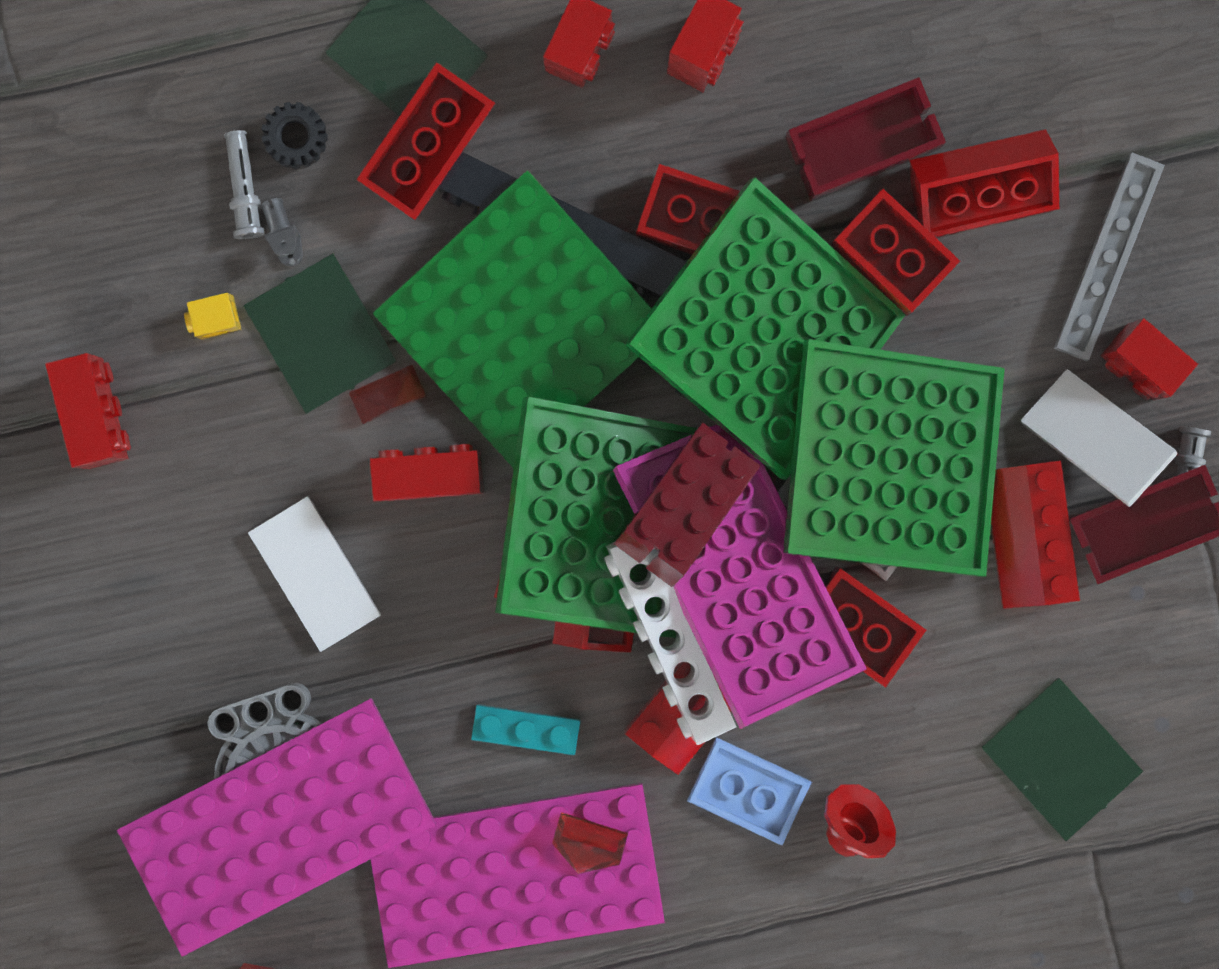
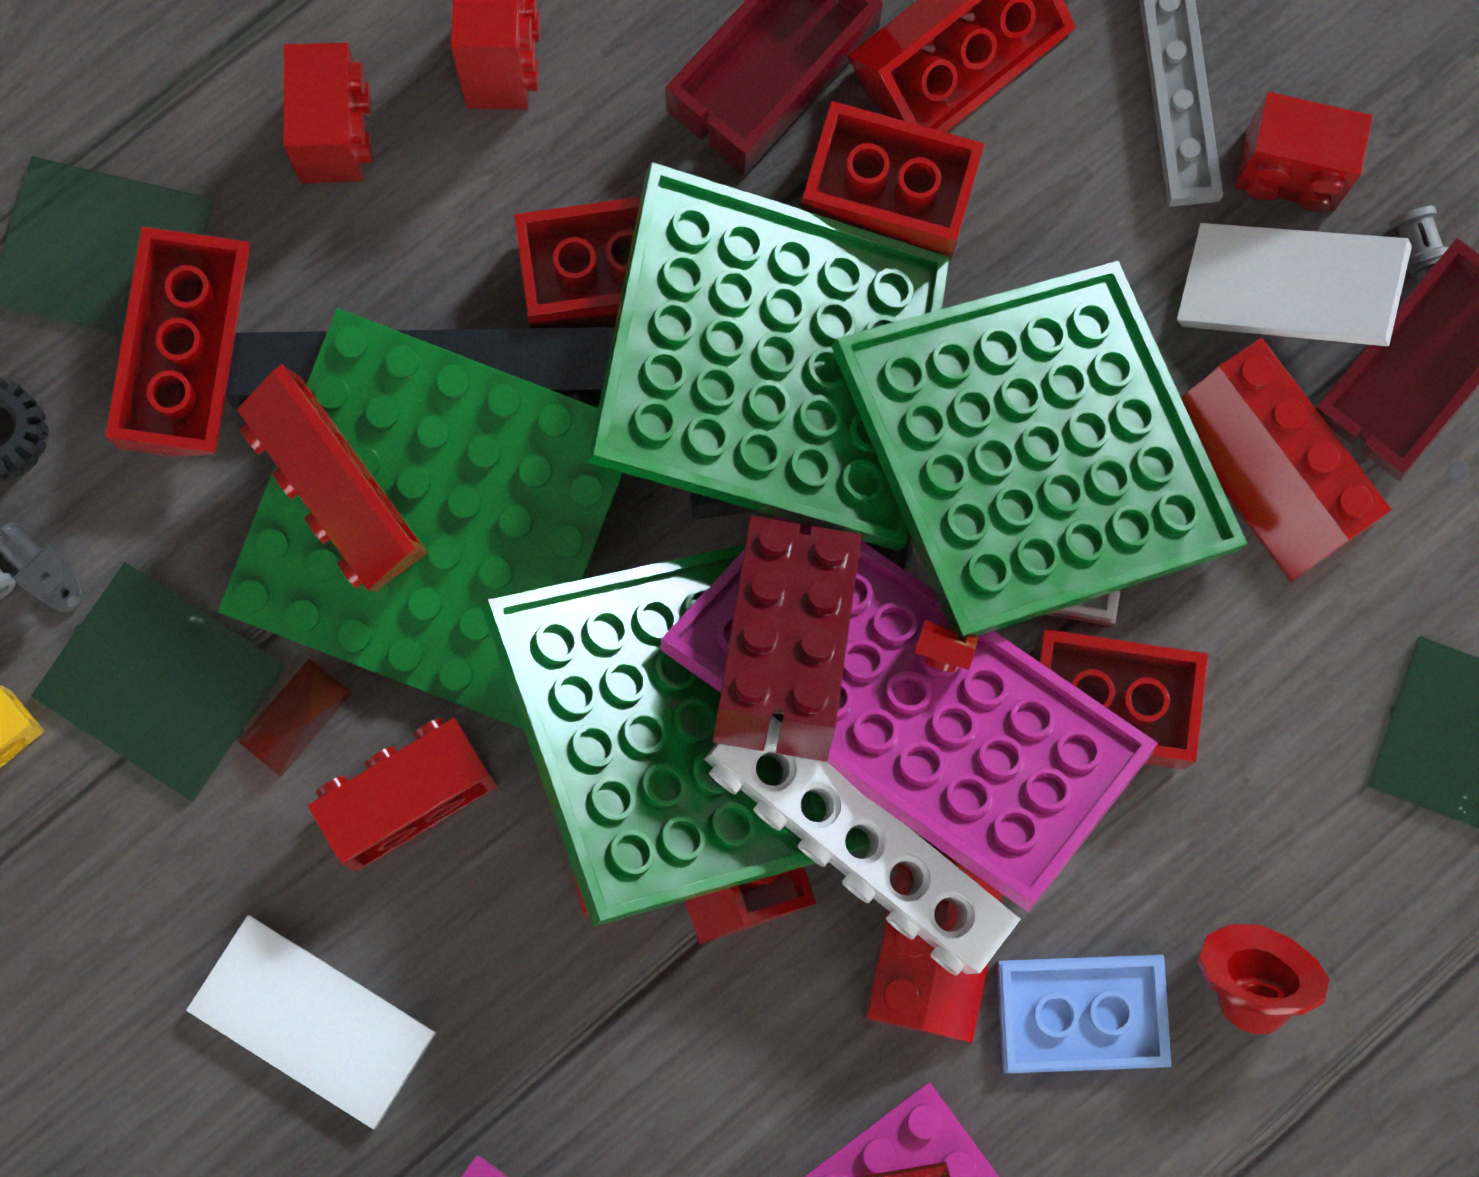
camera: 30 degrees left, 10 degrees down
(473, 276) = (329, 479): none -> red slope
(525, 729) = (724, 1090): teal plate -> none
(773, 554) = (944, 649): none -> red plate

